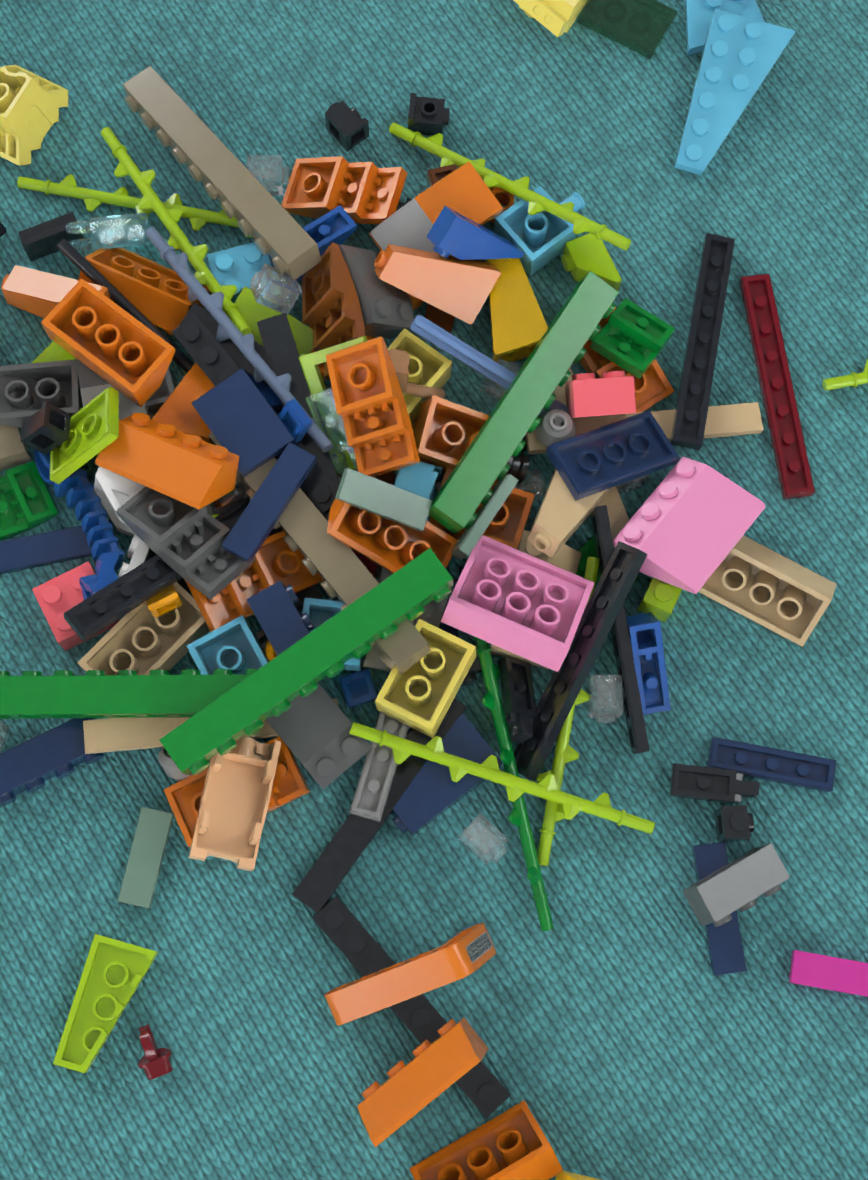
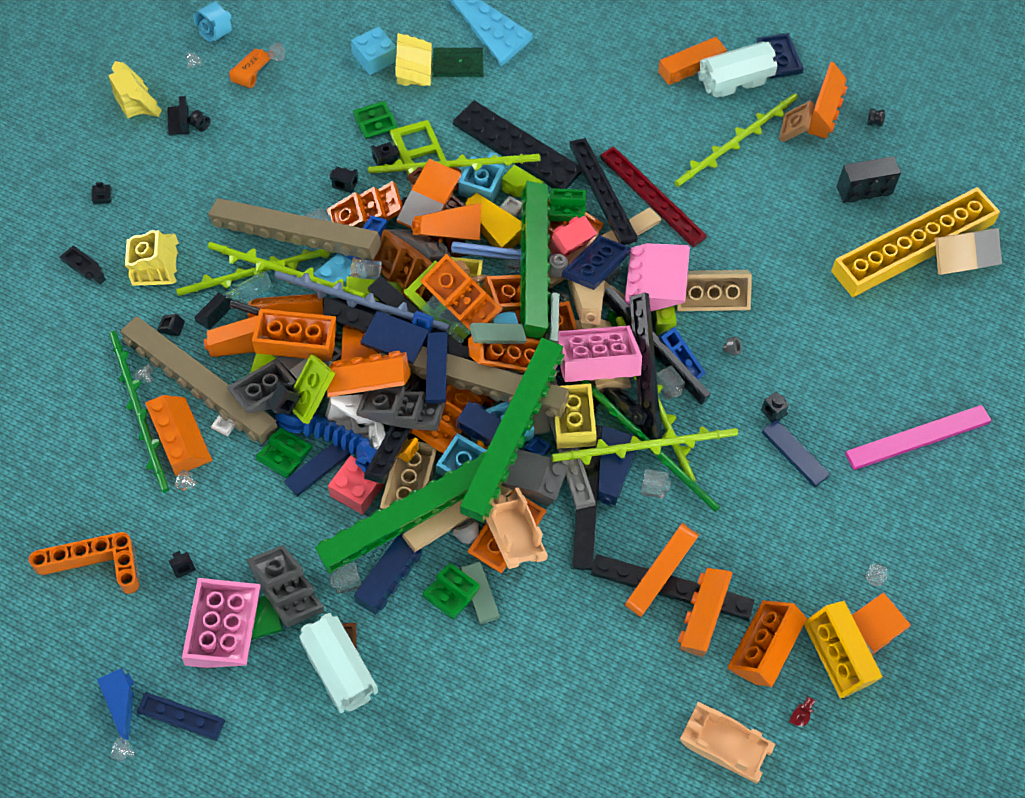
camera: 30 degrees left, 15 degrees down
(103, 992) = (503, 671): lime wing -> none
(107, 834) = (451, 591): none -> green slope
(155, 1060) = (555, 691): dark red piece -> none
(449, 51) = (374, 119): none -> green slope
(459, 132) = (405, 155): none -> lime window
(467, 239) = (453, 194): blue slope -> none
(555, 292) = (512, 206): none -> white tile
(628, 199) = (512, 141): none -> black plate
(705, 1159) = (877, 574): none -> clear tile
(710, 784) = (750, 396): black hinge -> none
(731, 70) = (530, 63): medium azure wing -> none
(736, 692) = (733, 346): none -> dark grey tile
(736, 885) = (798, 433): brick -> none
(772, 764) = (773, 372): dark blue tile -> none

